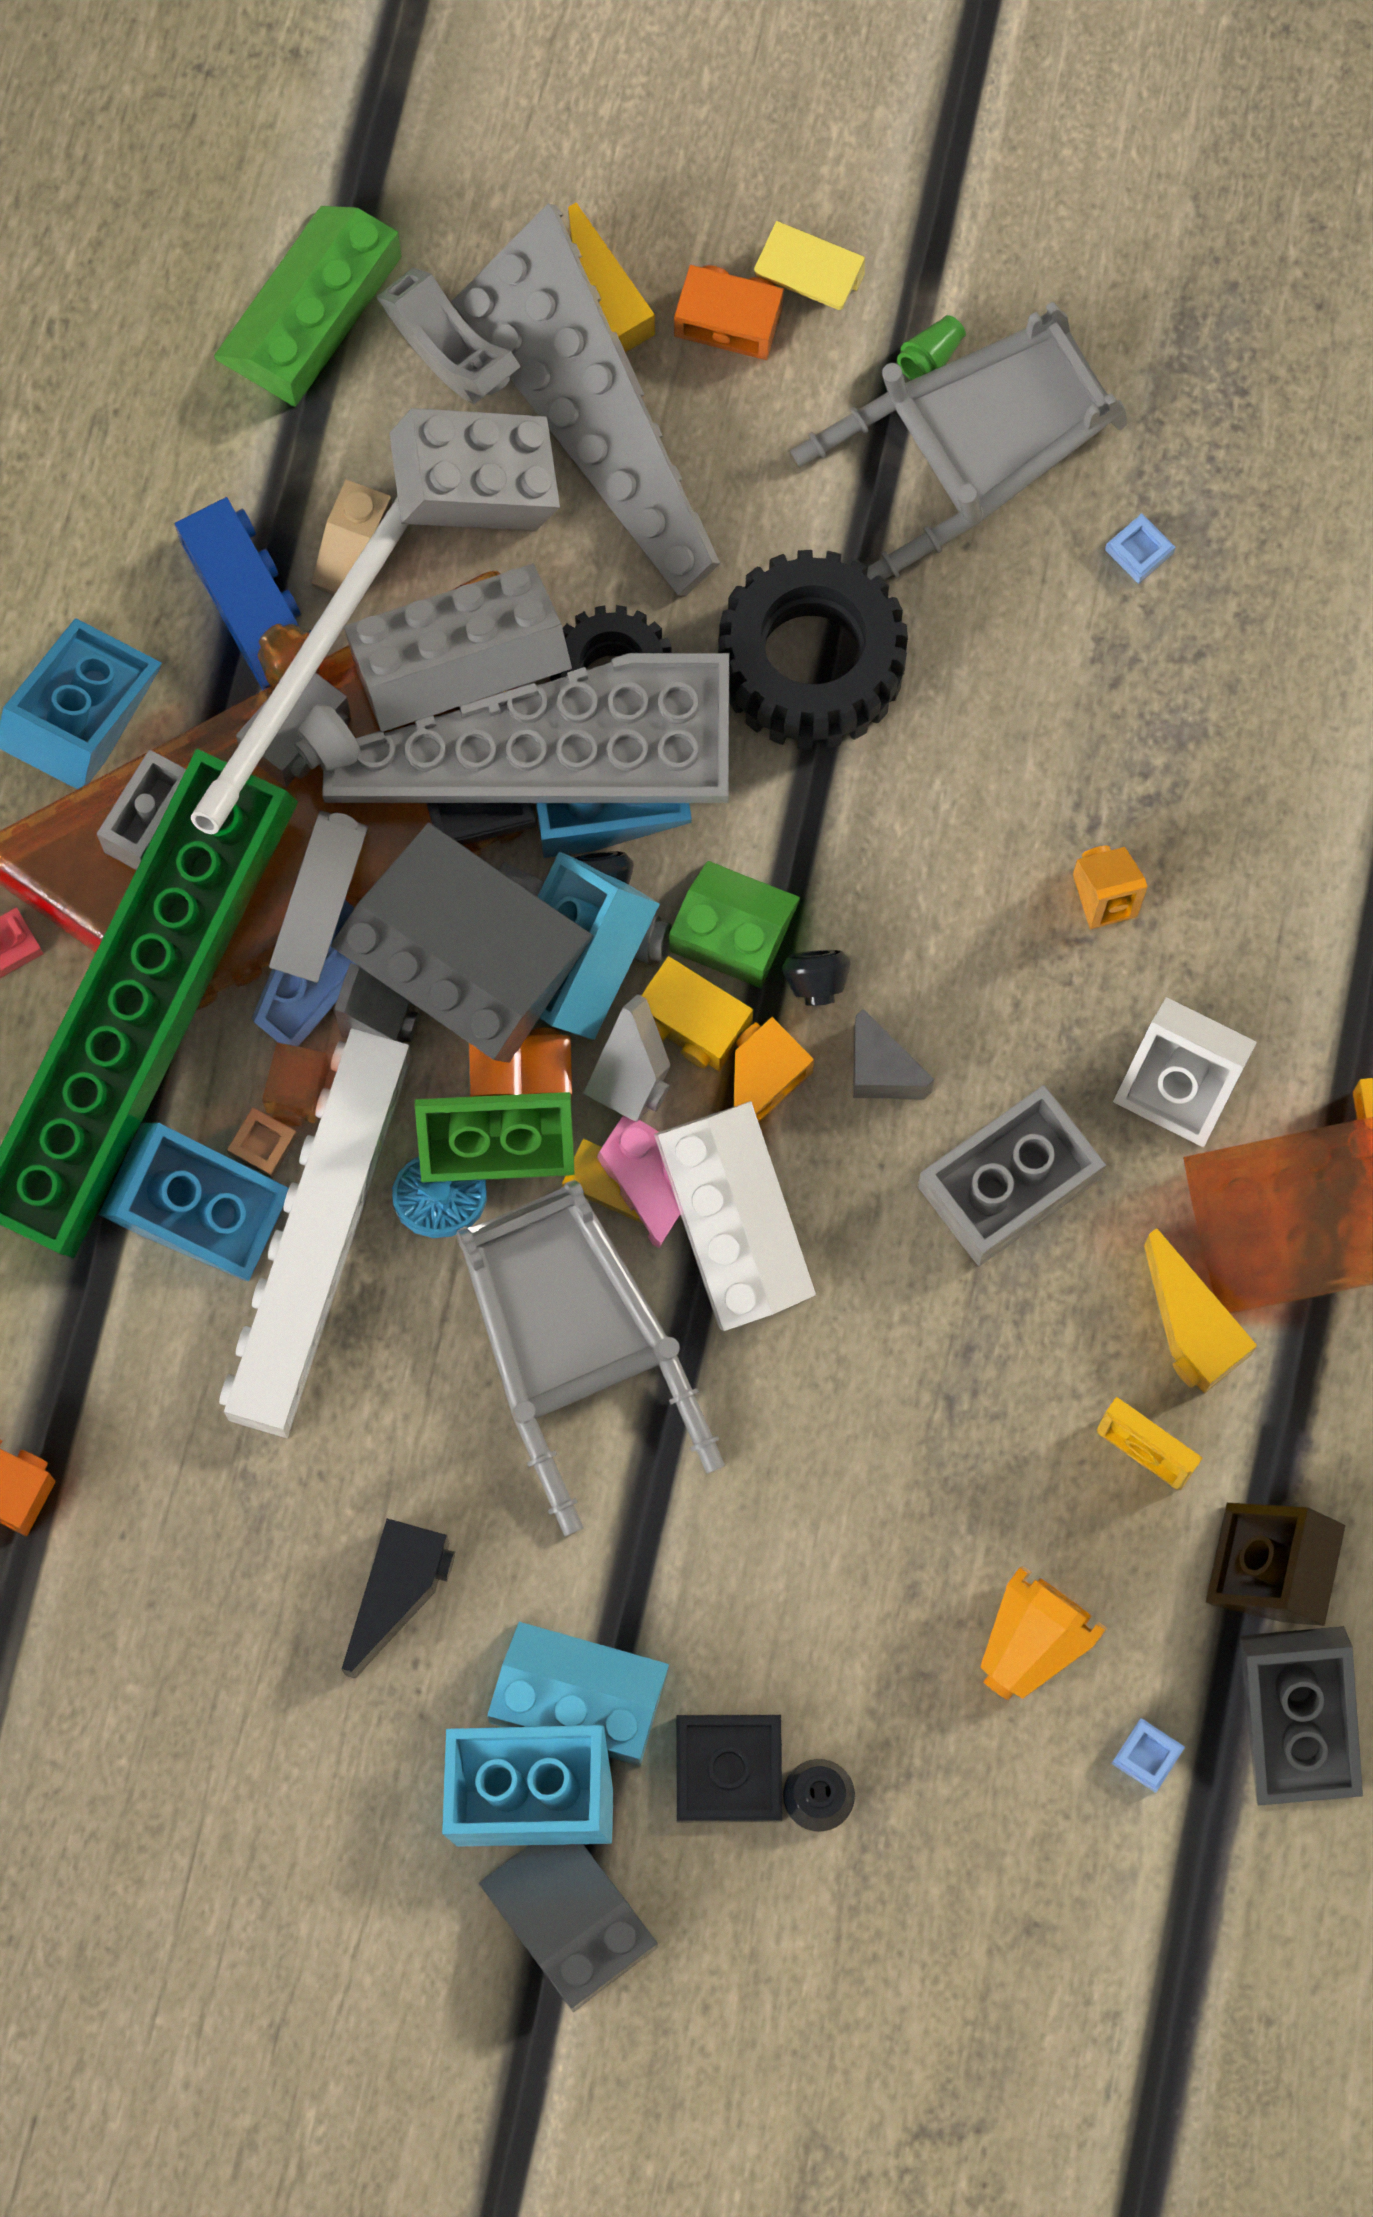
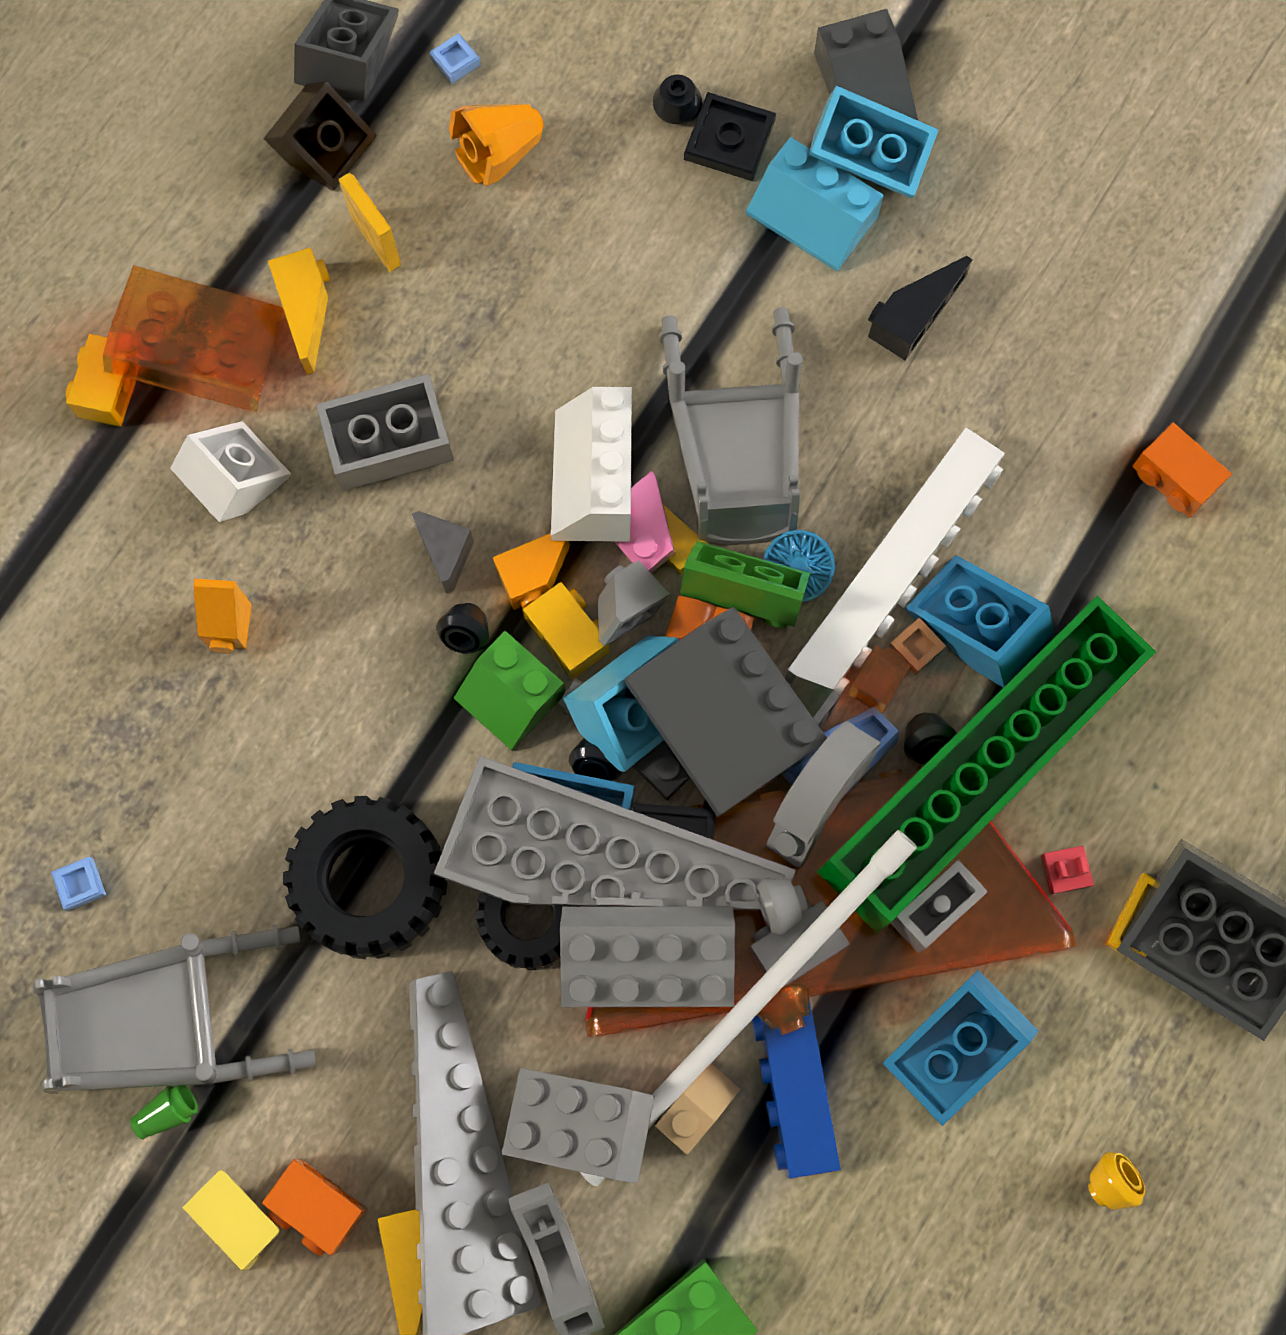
camera: 160 degrees left, 0 degrees up
(216, 1032) = (926, 736): none -> pearl dark grey cone

